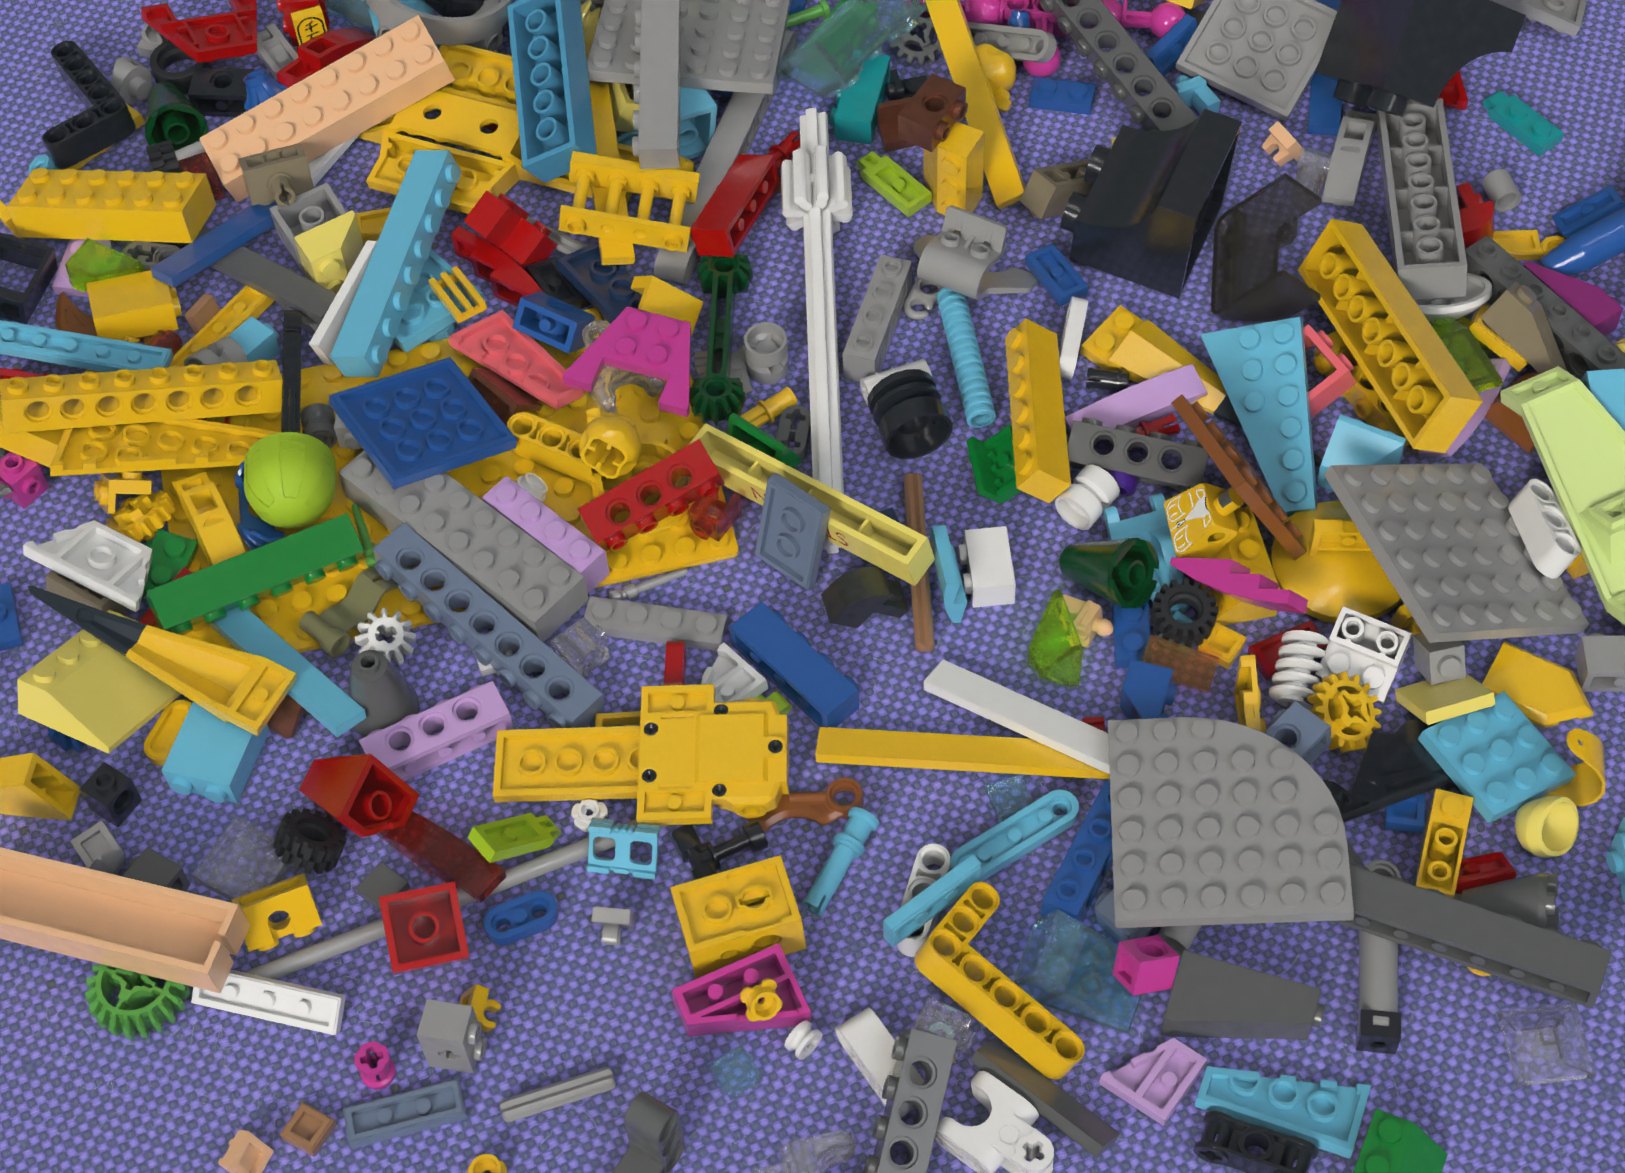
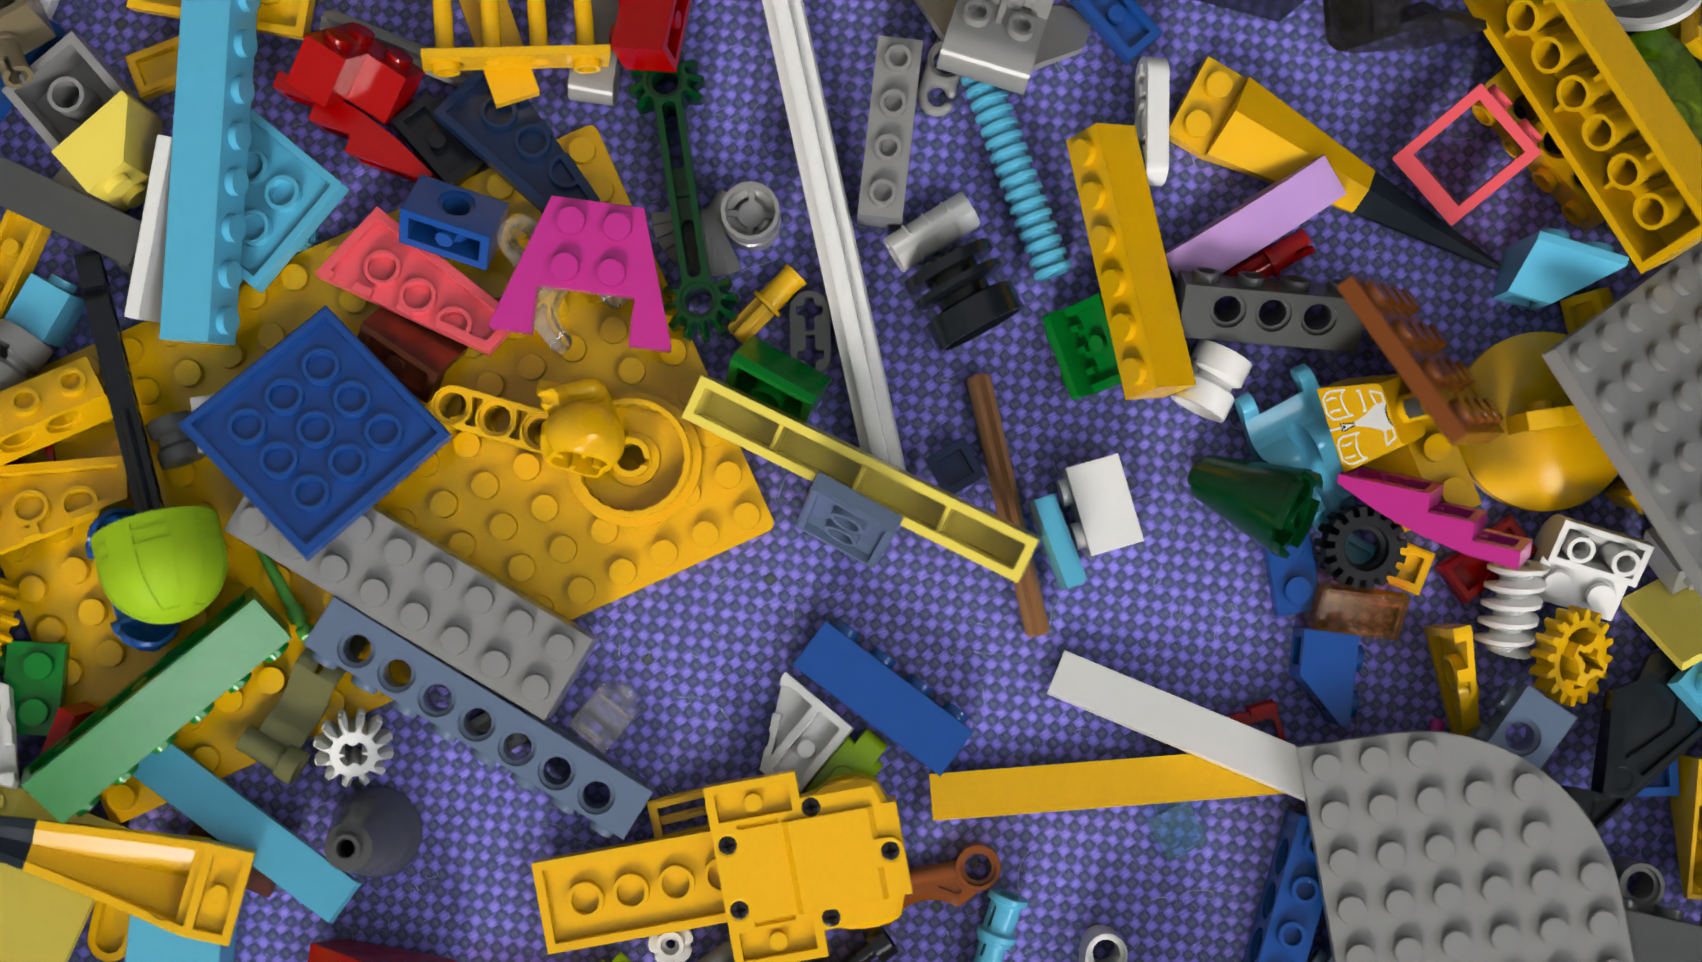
camera: 20 degrees left, 30 degrees up
(209, 518) = (72, 621): yellow slope -> none
(449, 281) = (286, 172): yellow tile -> none
(455, 740) = (400, 922): lavender brick -> none
(533, 485) = (486, 491): white plate -> none
(549, 530) = (522, 566): lavender brick -> none
(631, 590) = (650, 608): light grey piece -> none
(657, 623) = (690, 653): light grey plate -> none
(661, 479) = (704, 454): red brick -> none
(666, 300) = (601, 164): yellow panel -> none
(675, 663) = (733, 727): red beam -> none
(713, 517) = (735, 493): clear red window -> none
(860, 594) = (947, 589): pearl dark grey brick -> none
(1020, 833) = (1193, 889): medium azure plate -> none
(1056, 645) = (1208, 623): clear neon green slope -> none
(1087, 619) = (1236, 560): light nougat piece -> none
(1109, 380) = (1208, 180): black pin -> none
(1126, 482) = (1251, 351): dark purple tile -> none
(1269, 391) = (1431, 185): medium azure wing -> none

